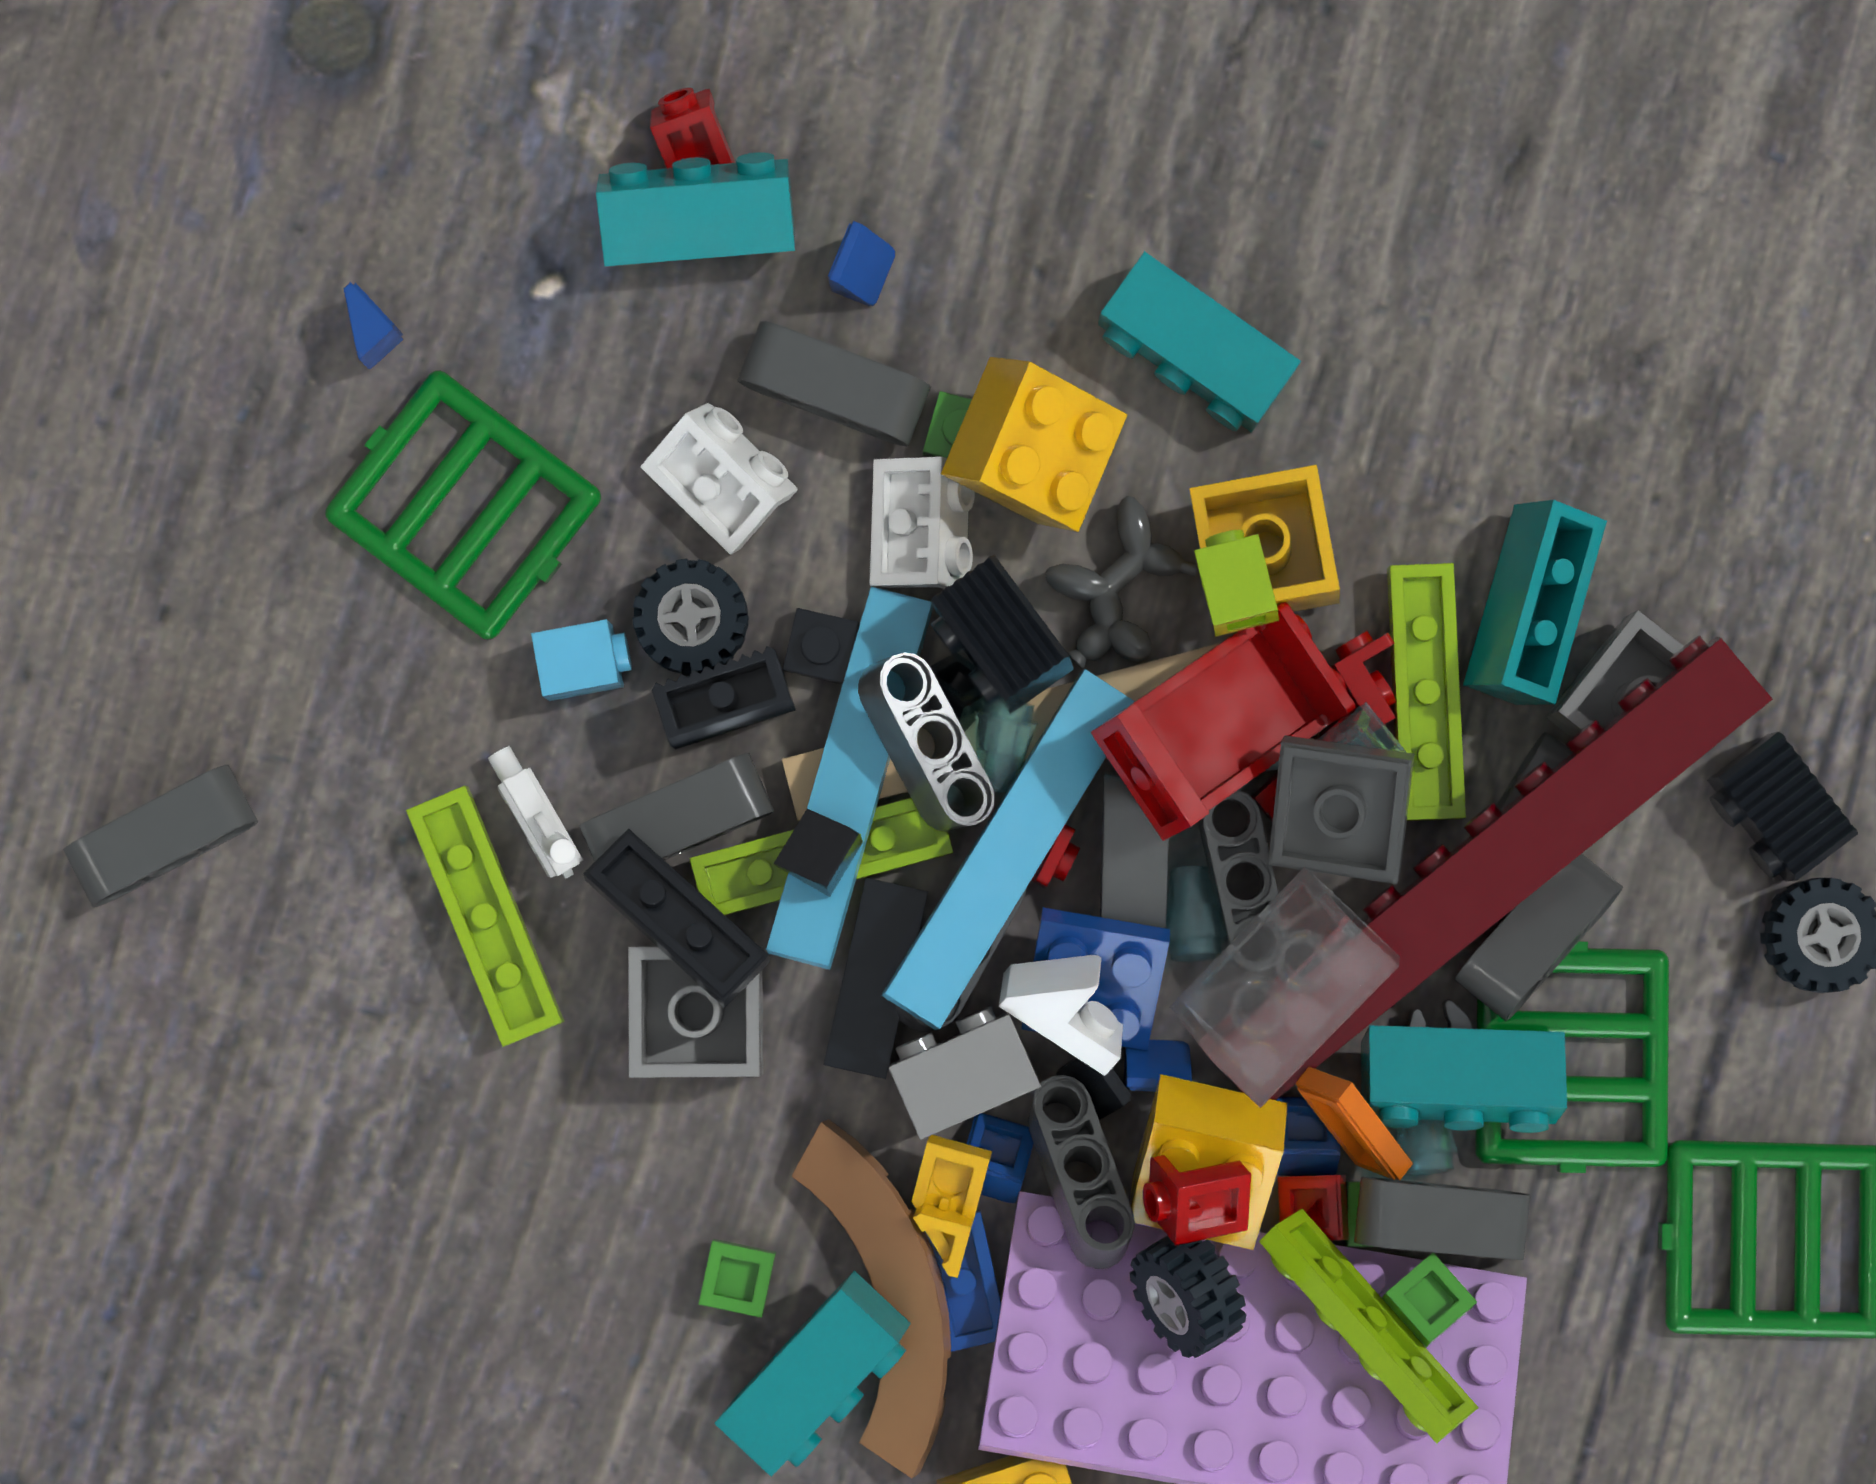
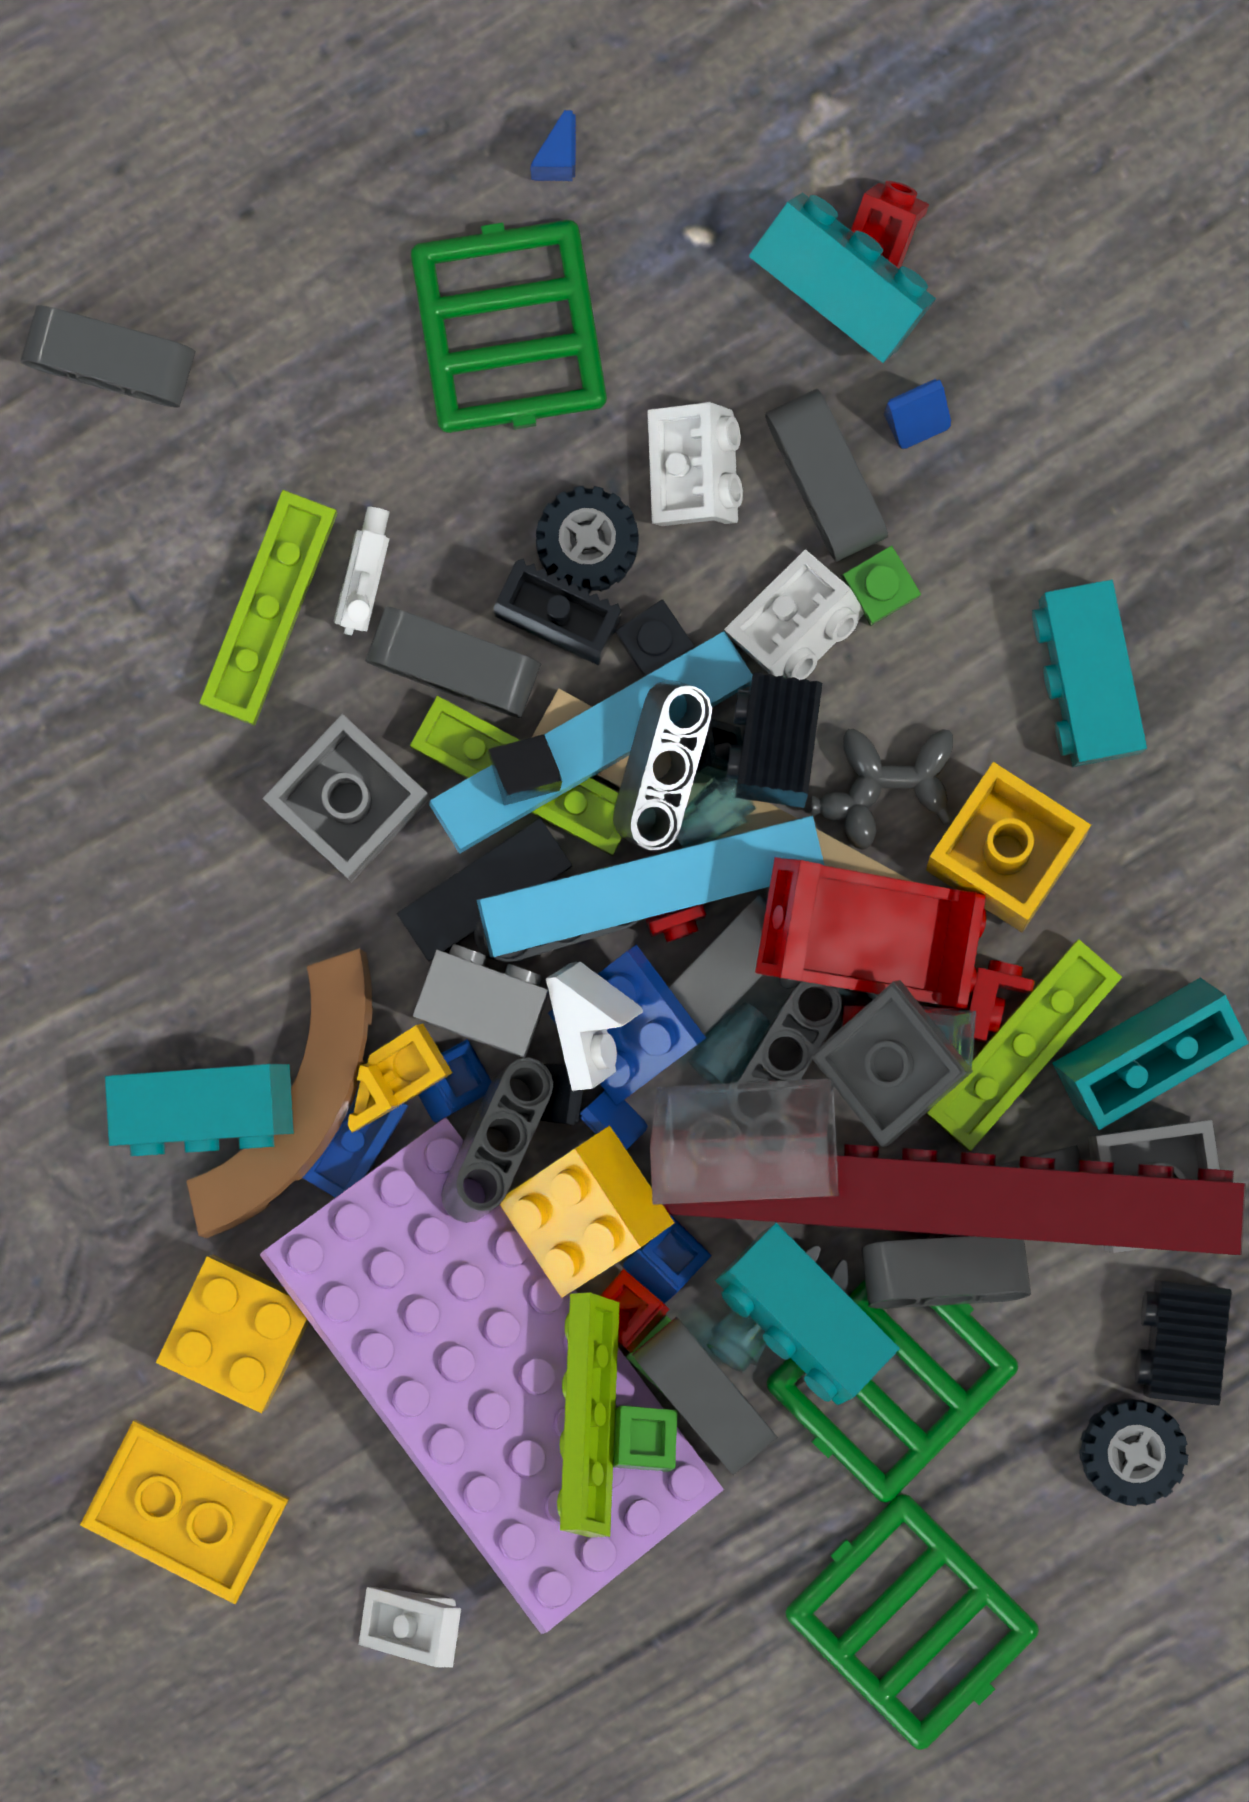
camera: 35 degrees right, 0 degrees up
(580, 659) = (489, 499): medium azure brick -> none
(676, 917) = (391, 724): black tile -> none
(737, 1278) = (208, 998): bright green plate -> none
(1034, 443) = (919, 637): yellow brick -> none
(1188, 1295) = (491, 1280): black wheel -> none
(1197, 1201) = (555, 1226): red bracket -> none
(1236, 582) = (962, 850): lime brick -> none
(1353, 1123) = (705, 1277): orange tile -> none

